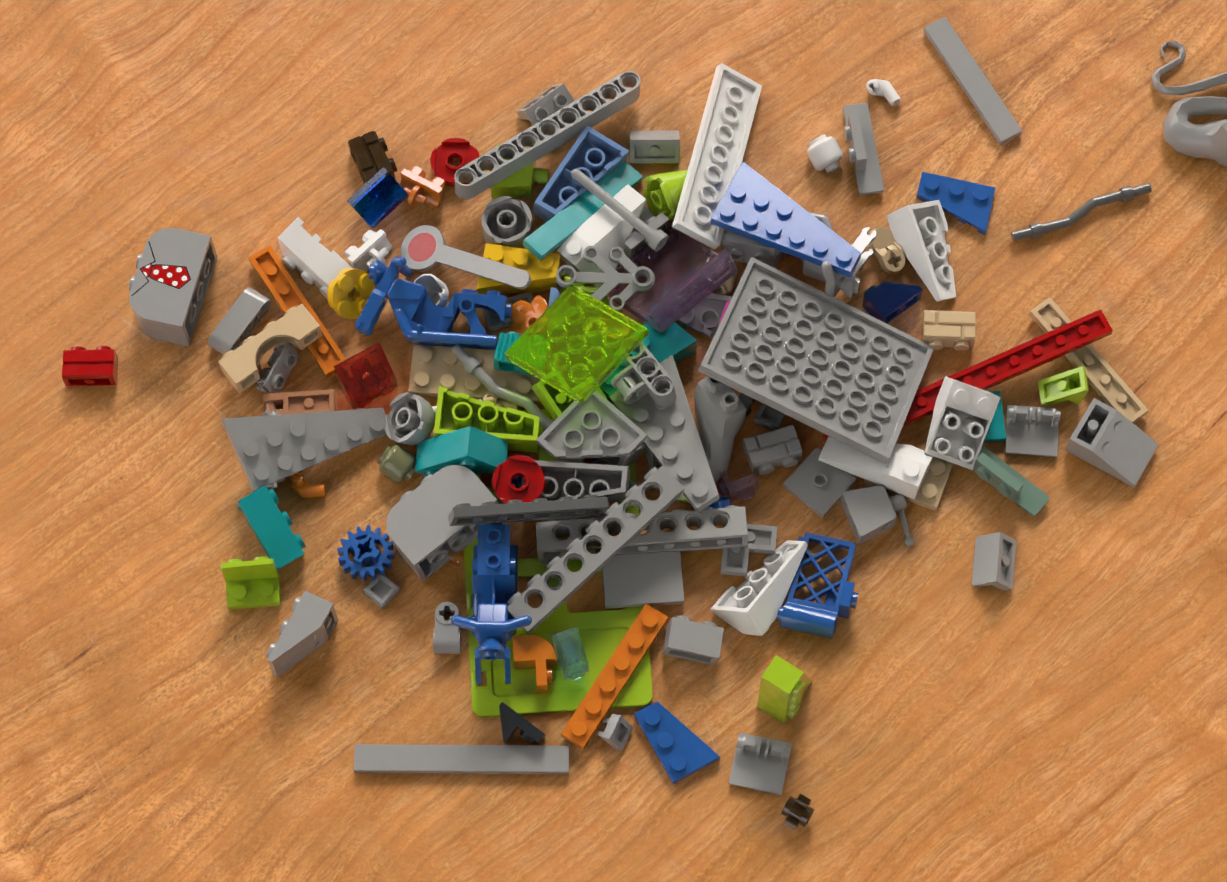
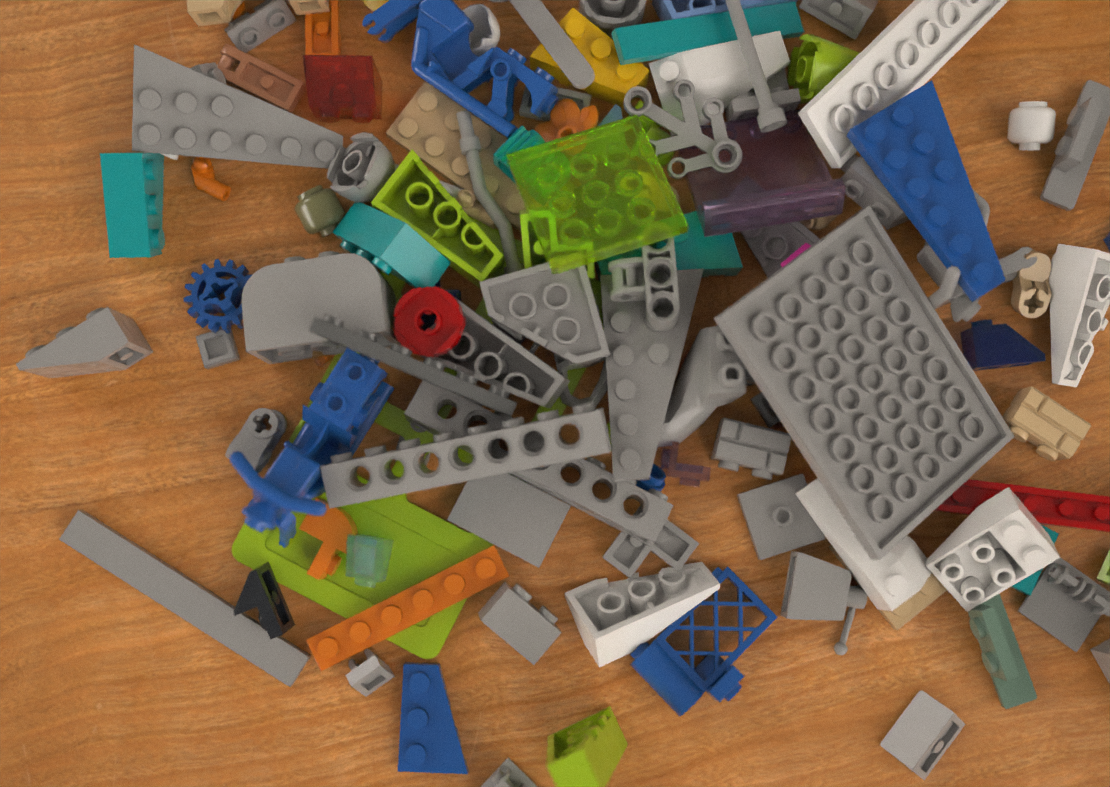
camera: 30 degrees right, 15 degrees up
(251, 583) = (78, 257): lime bracket -> none

